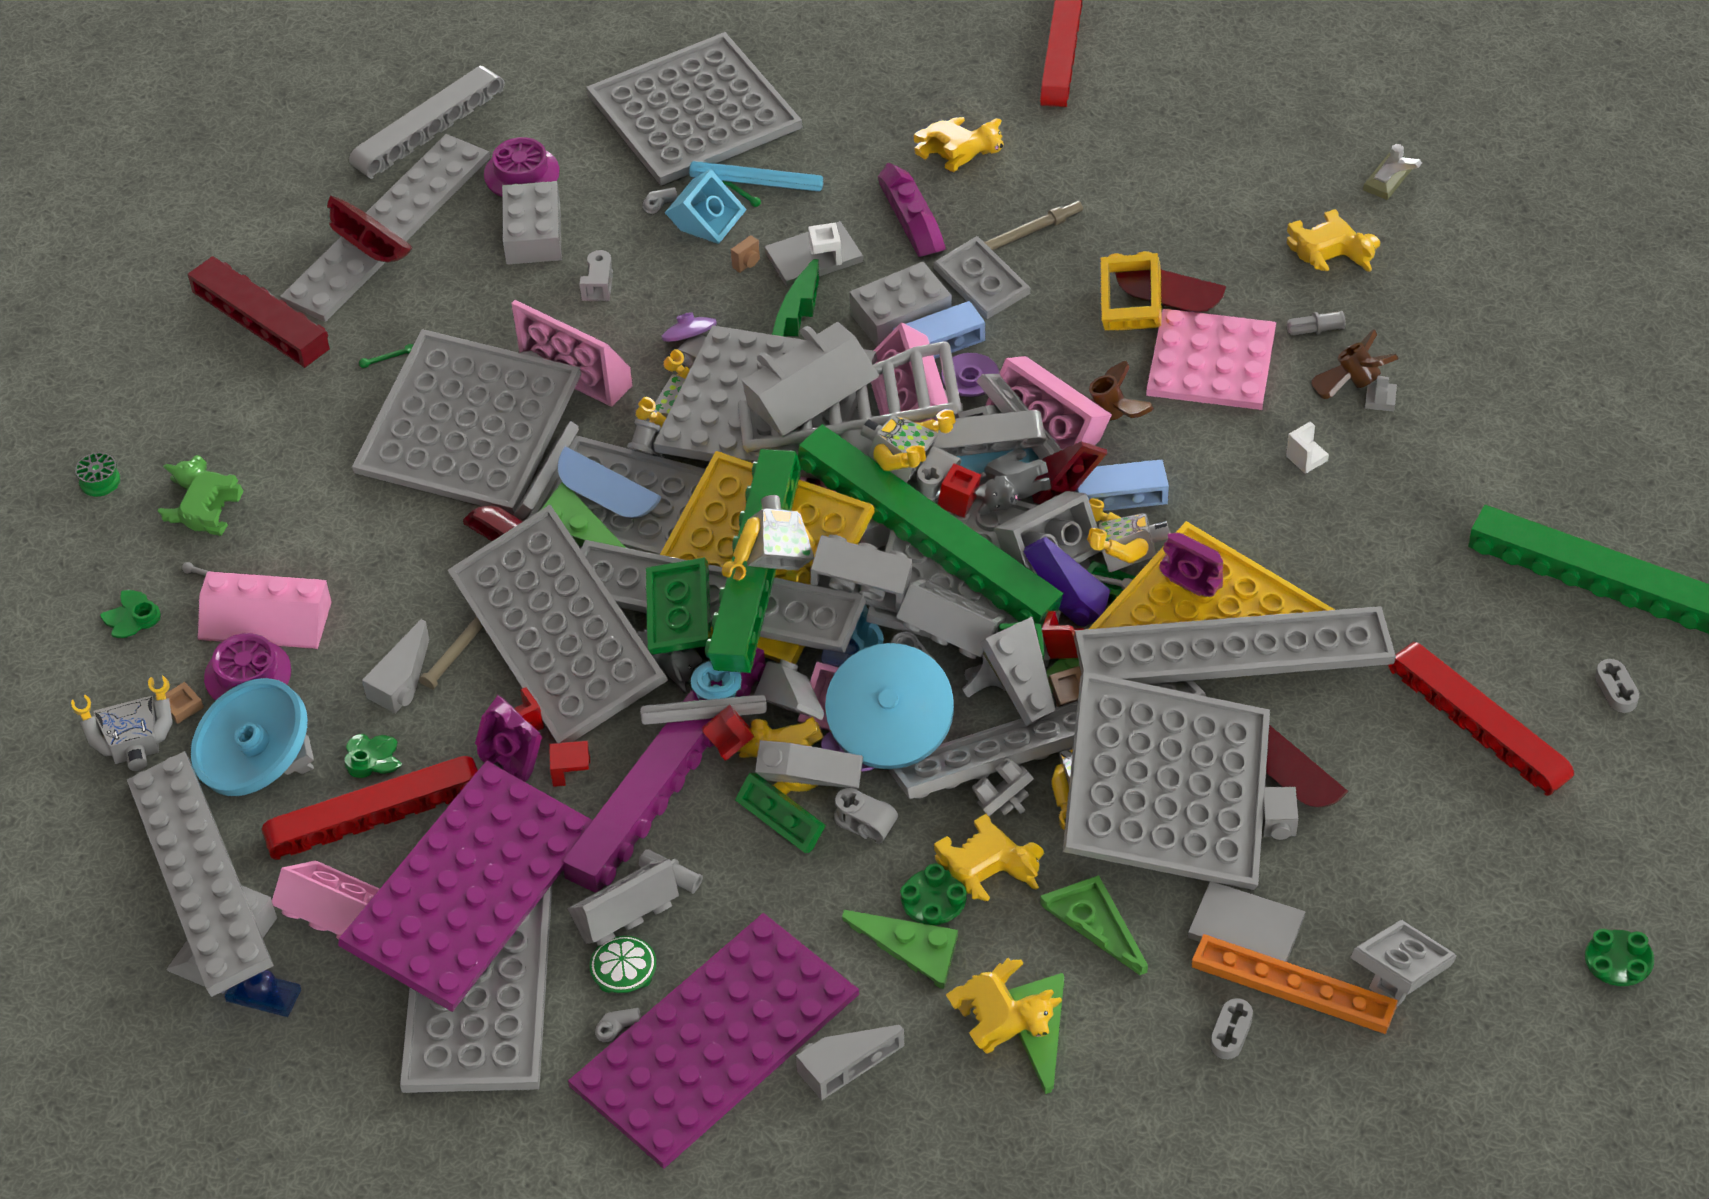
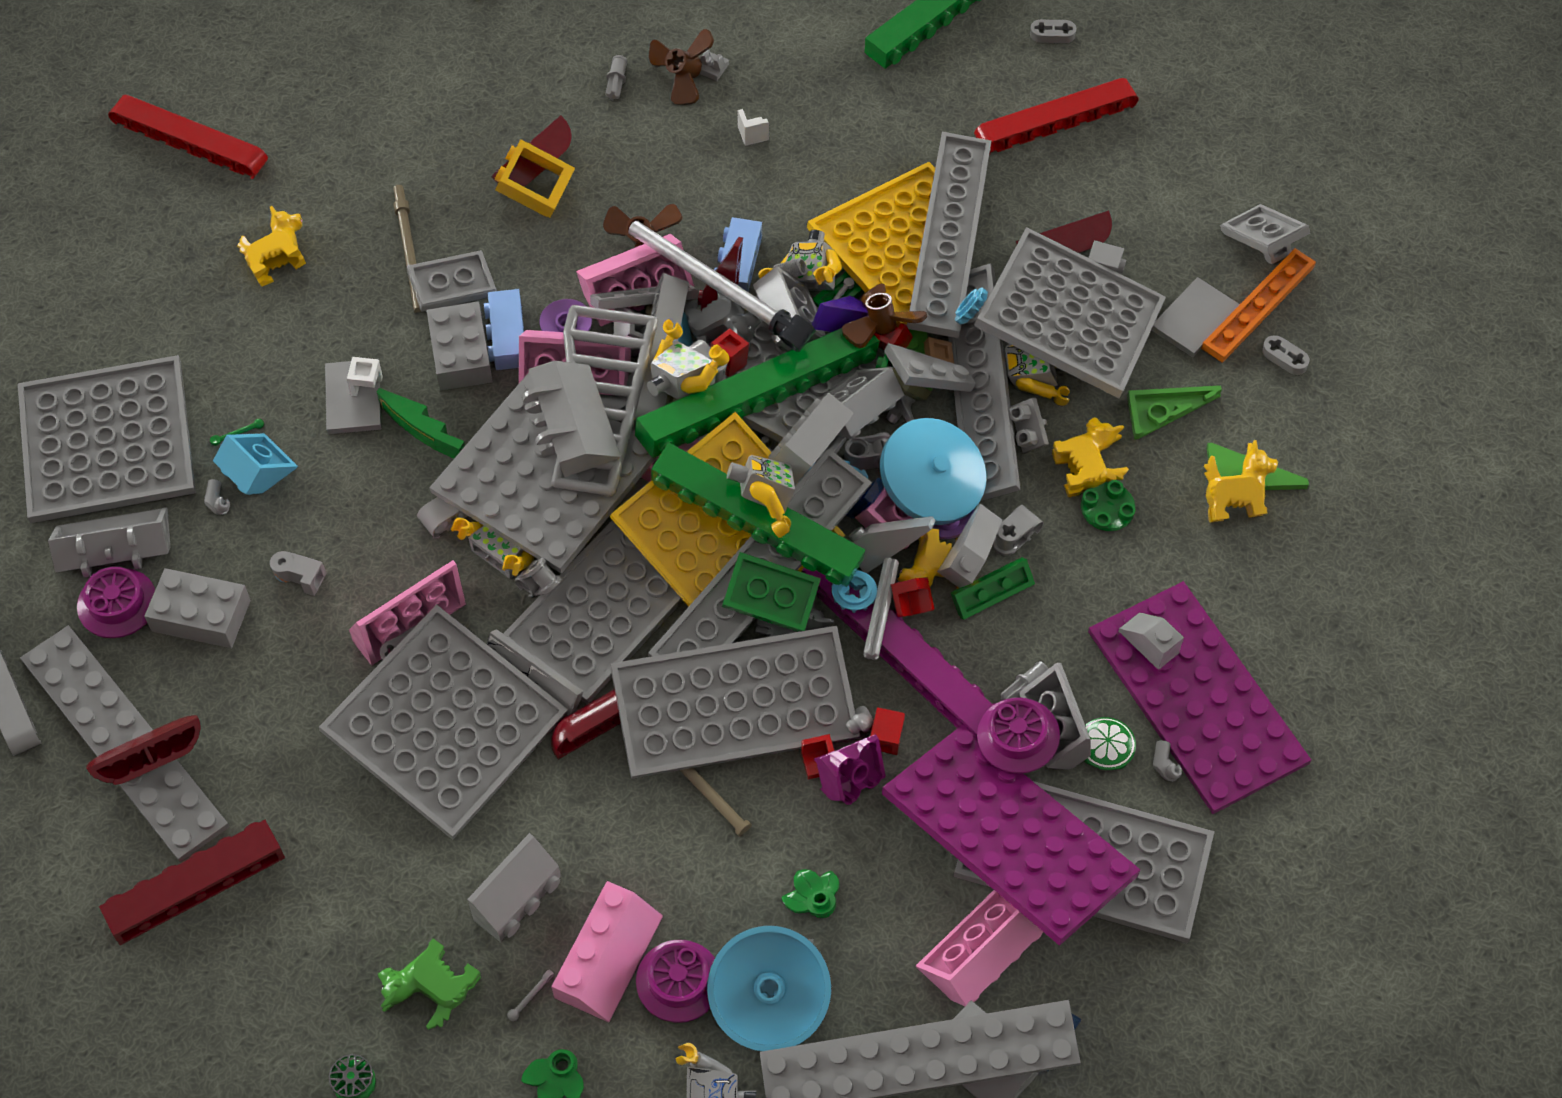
camera: 75 degrees left, 10 degrees up
(183, 702) = (694, 1037): medium nougat plate -> none
(304, 519) = (514, 889): none -> light grey slope
(364, 362) = (307, 757): green hinge -> none
(367, 807) = (880, 905): red beam -> none
(397, 674) = (730, 846): light grey slope -> none
(567, 732) = (861, 721): none -> light grey arm
(579, 519) = (595, 662): bright green wing -> none
(583, 145) = (110, 541): none -> light grey piece
(583, 858) = (1018, 735): none -> magenta wheel
(605, 485) = (590, 620): light blue brick -> none
(688, 327) = (409, 514): medium lavender dish -> none
(745, 254) = (333, 445): medium nougat plate -> none
(755, 964) = (1153, 638): none -> light grey slope
(759, 176) = (229, 413): medium azure axle -> none
(843, 1057) = (1251, 613): light grey slope -> none
(911, 210) = (339, 307): magenta brick -> none
(919, 945) = (1149, 530): bright green wing -> none
(998, 520) = (791, 330): none -> flat silver piece
(1069, 602) = (880, 318): none -> reddish brown piece
(1111, 523) = (793, 267): none -> light grey piece
(1112, 668) = (970, 305): none -> medium azure gear
(1192, 565) = (872, 225): magenta slope -> none
(1211, 359) = (622, 156): bright pink plate -> none
(1331, 240) = (533, 35): yellow animal -> none
(1619, 957) = (1289, 115): green dish -> none

